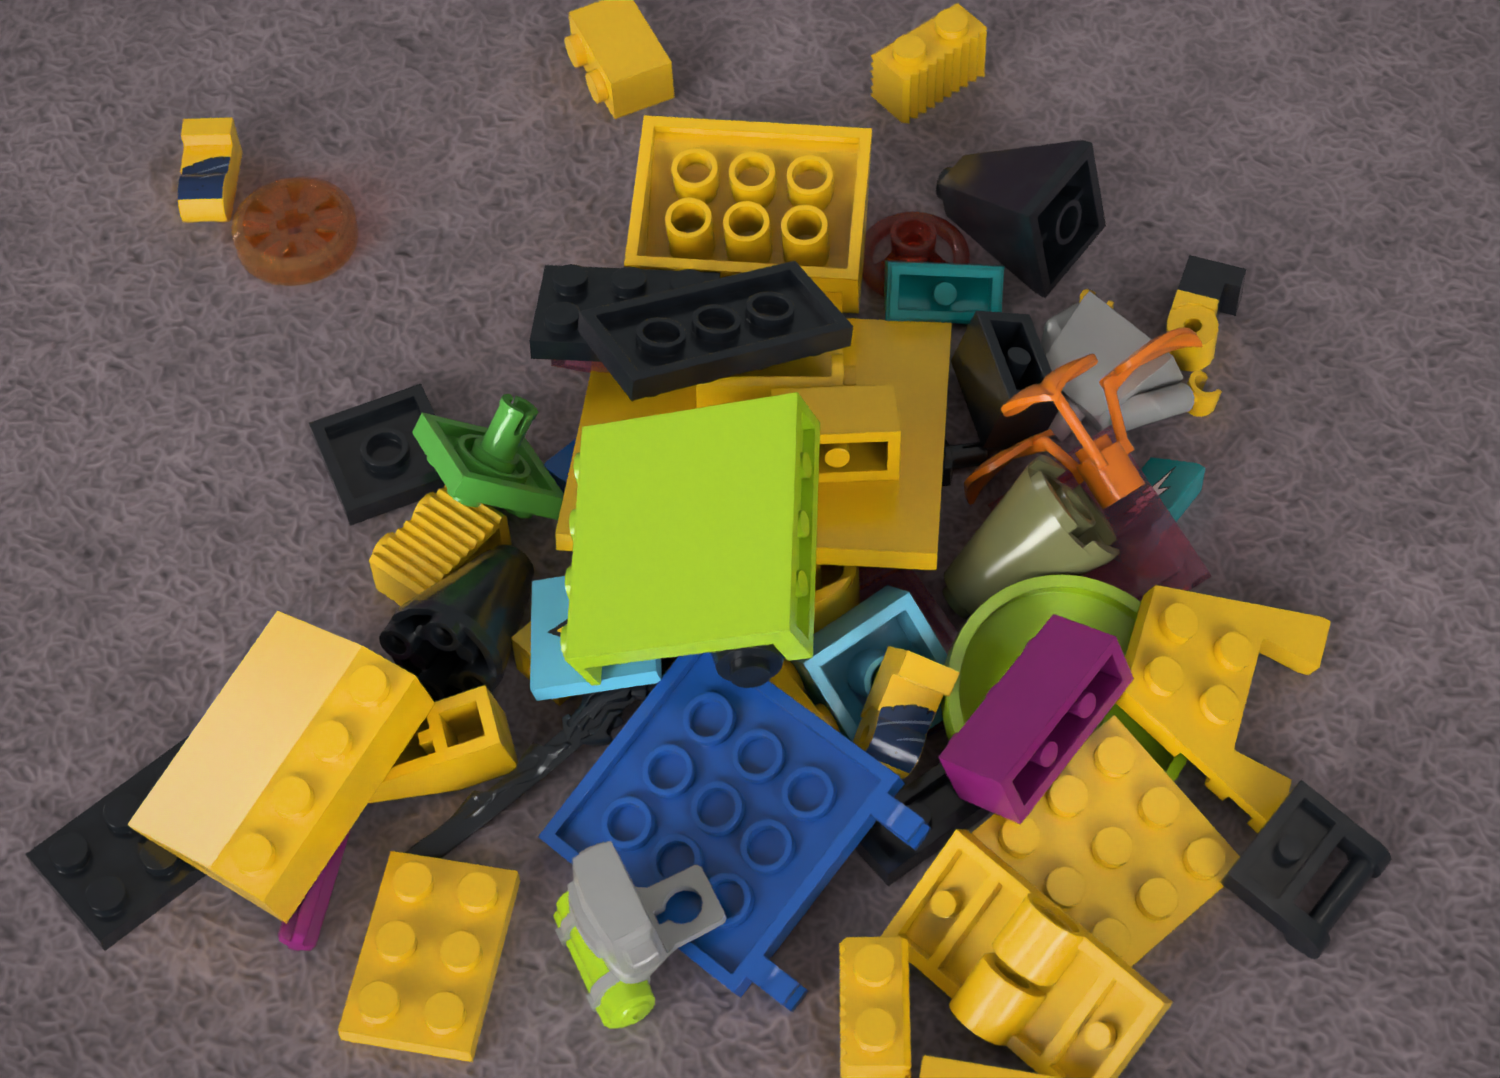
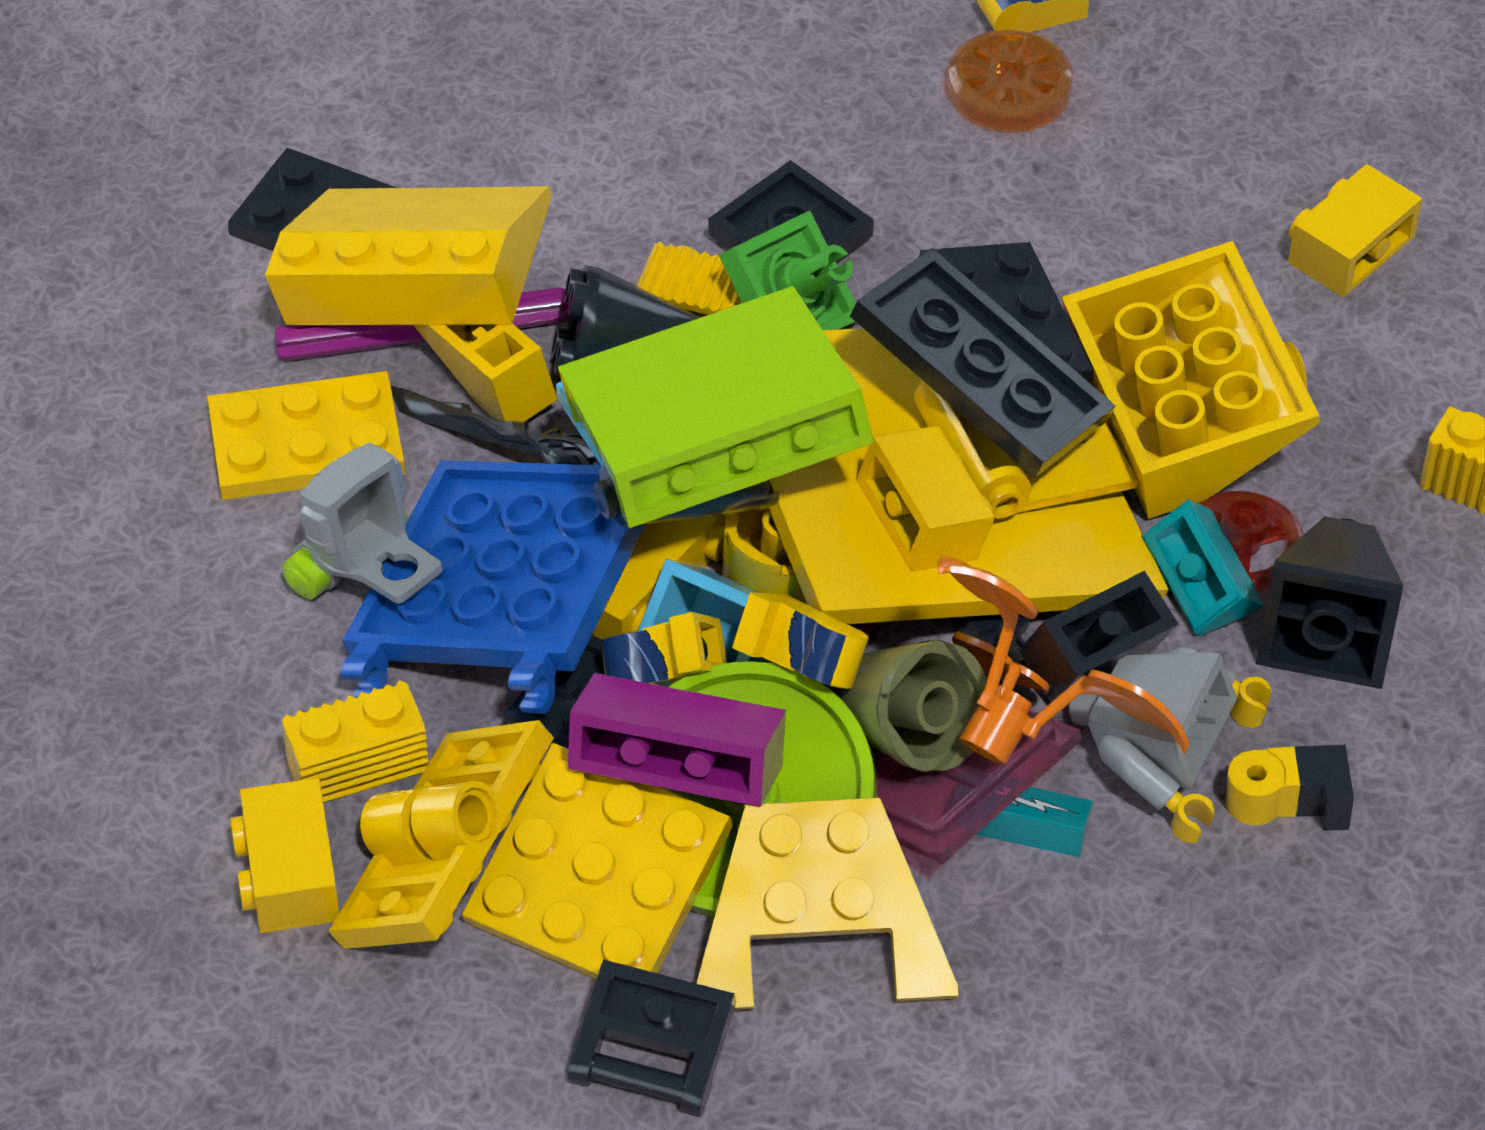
camera: 65 degrees right, 5 degrees down
(967, 577) = (800, 639): none -> yellow leg

